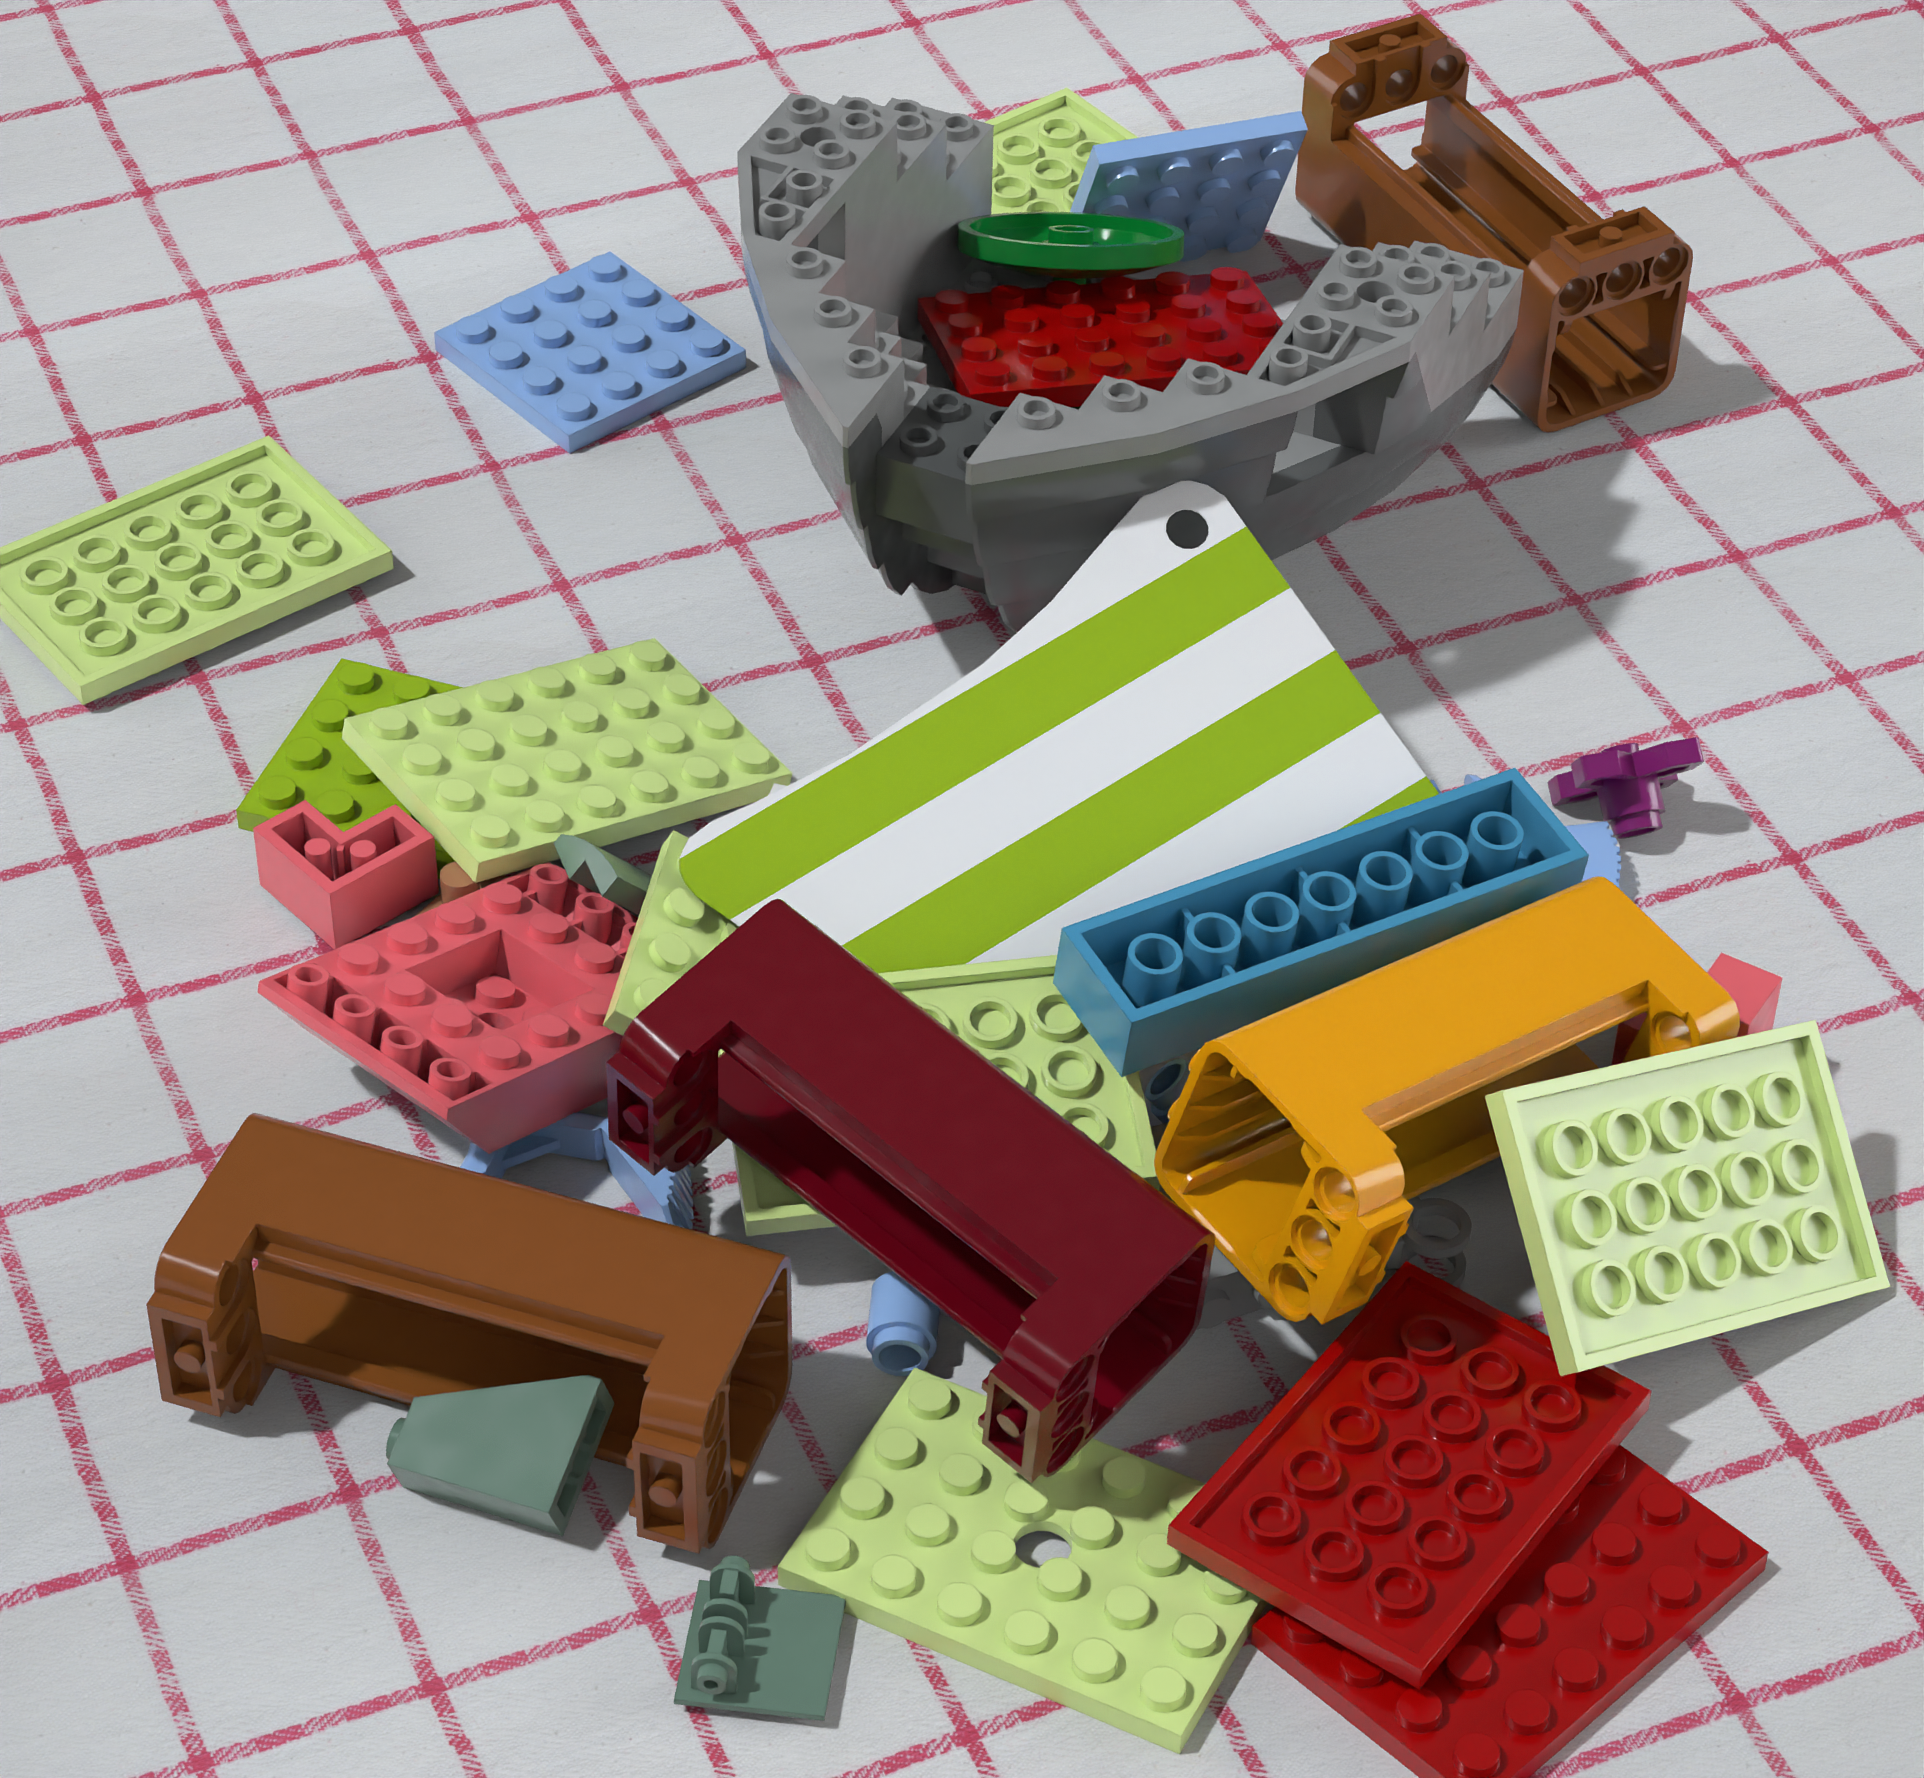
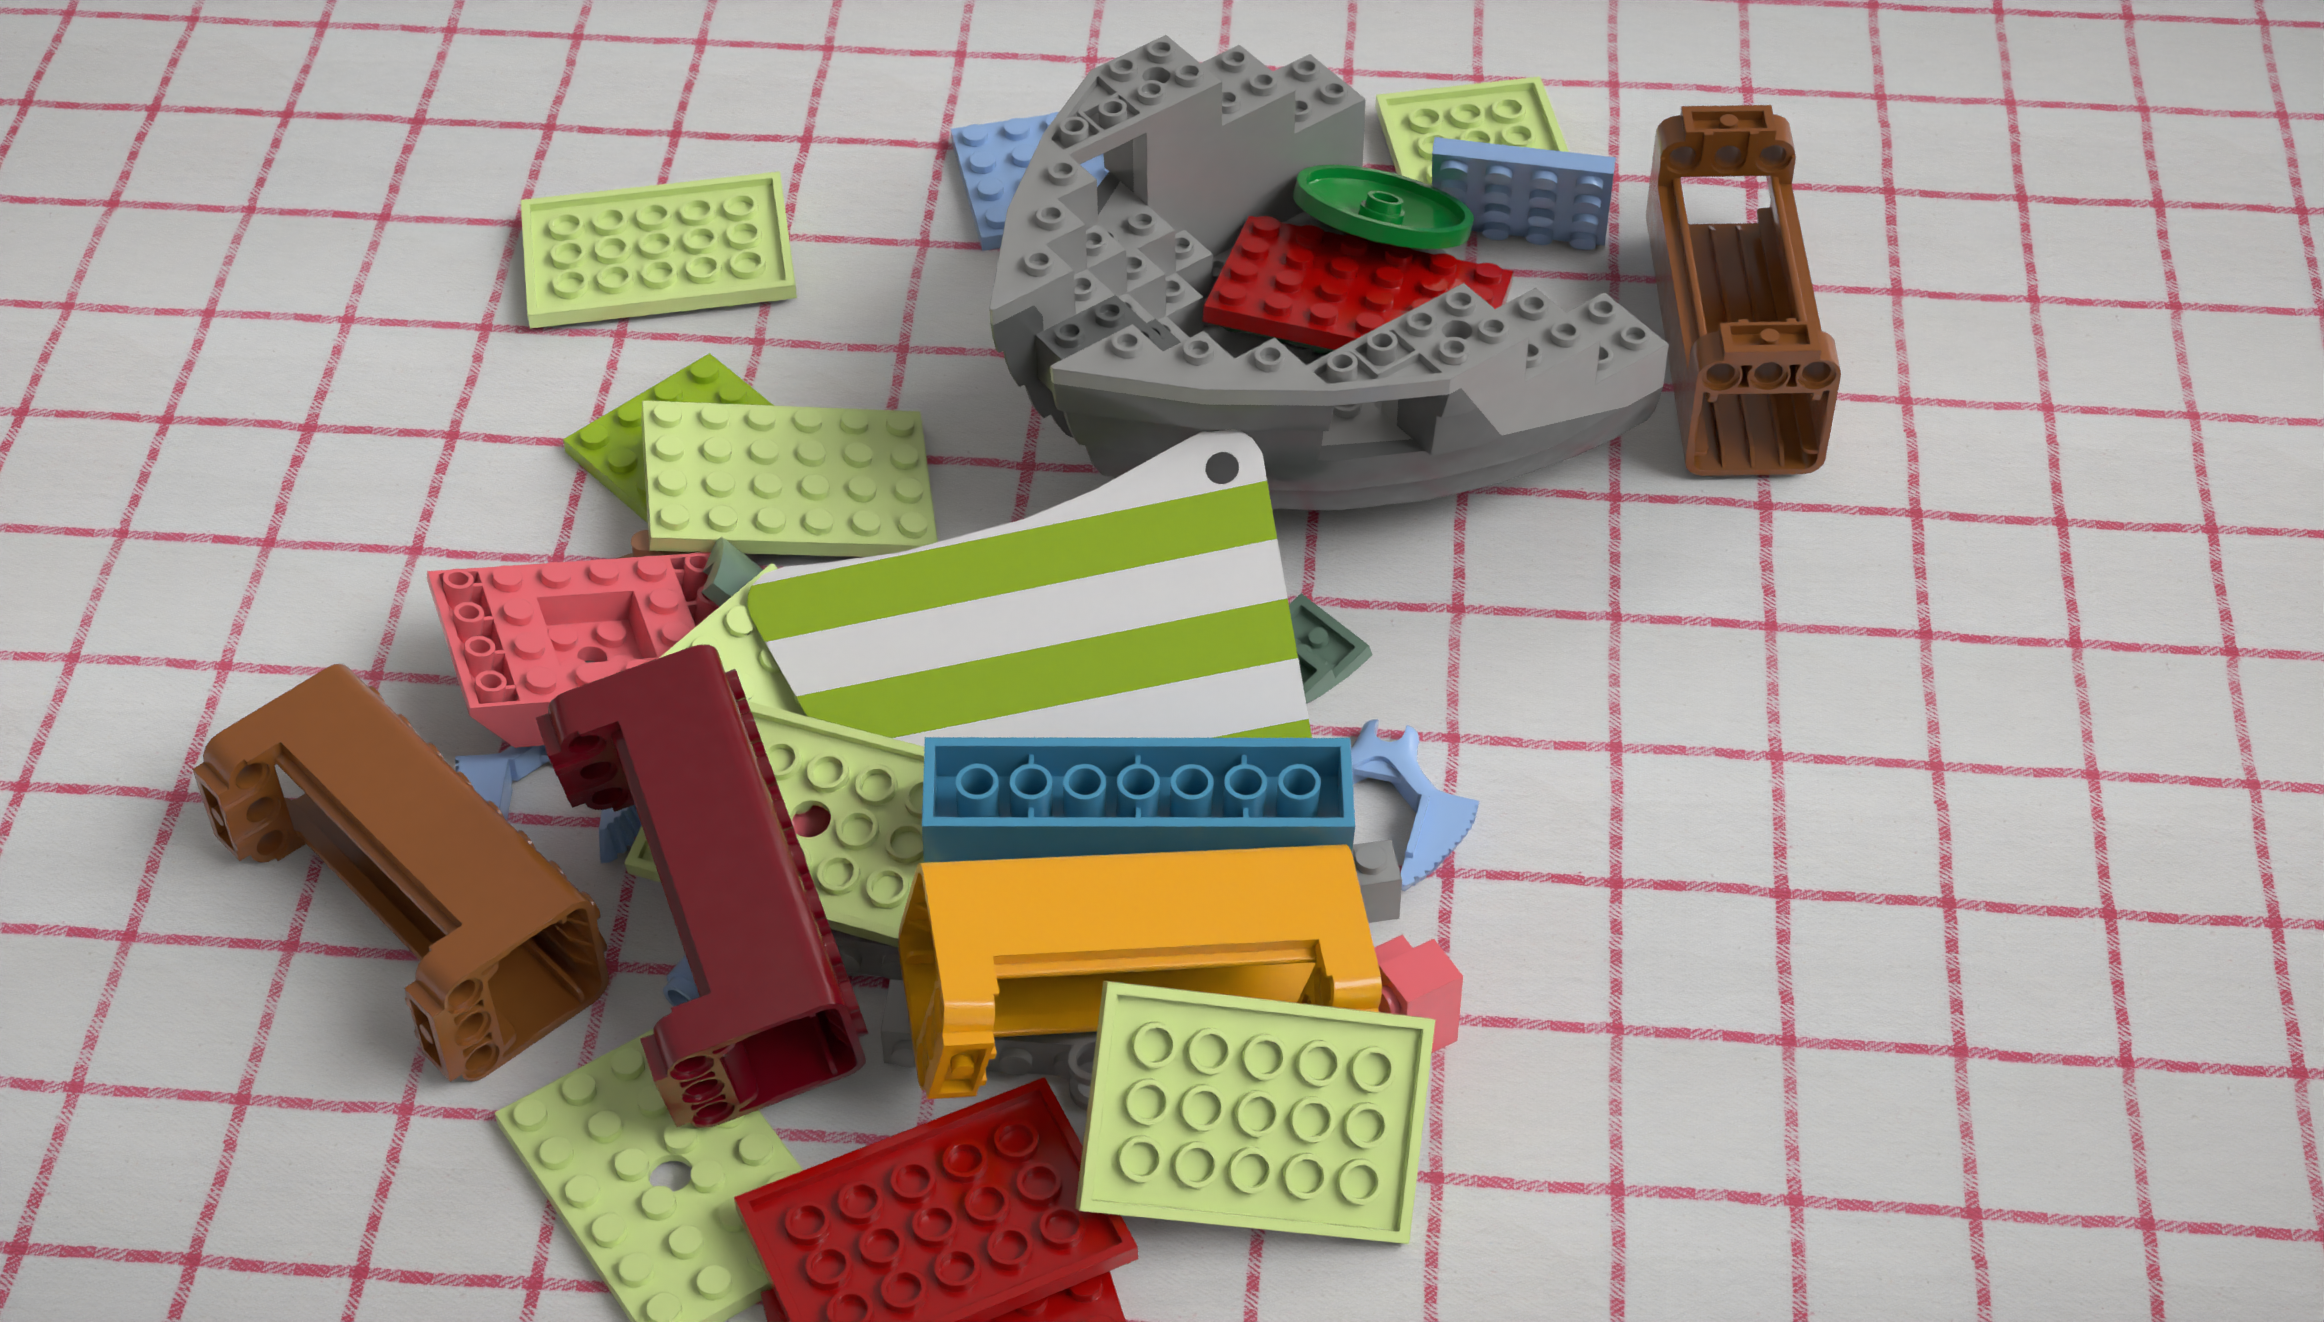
camera: 30 degrees right, 5 degrees up
(345, 879) = (584, 515): coral brick -> none
(504, 1447) = (371, 955): sand green slope -> none
(759, 1646) = (445, 1163): sand green hinge -> none
(1627, 782) = (1511, 778): magenta plant -> none

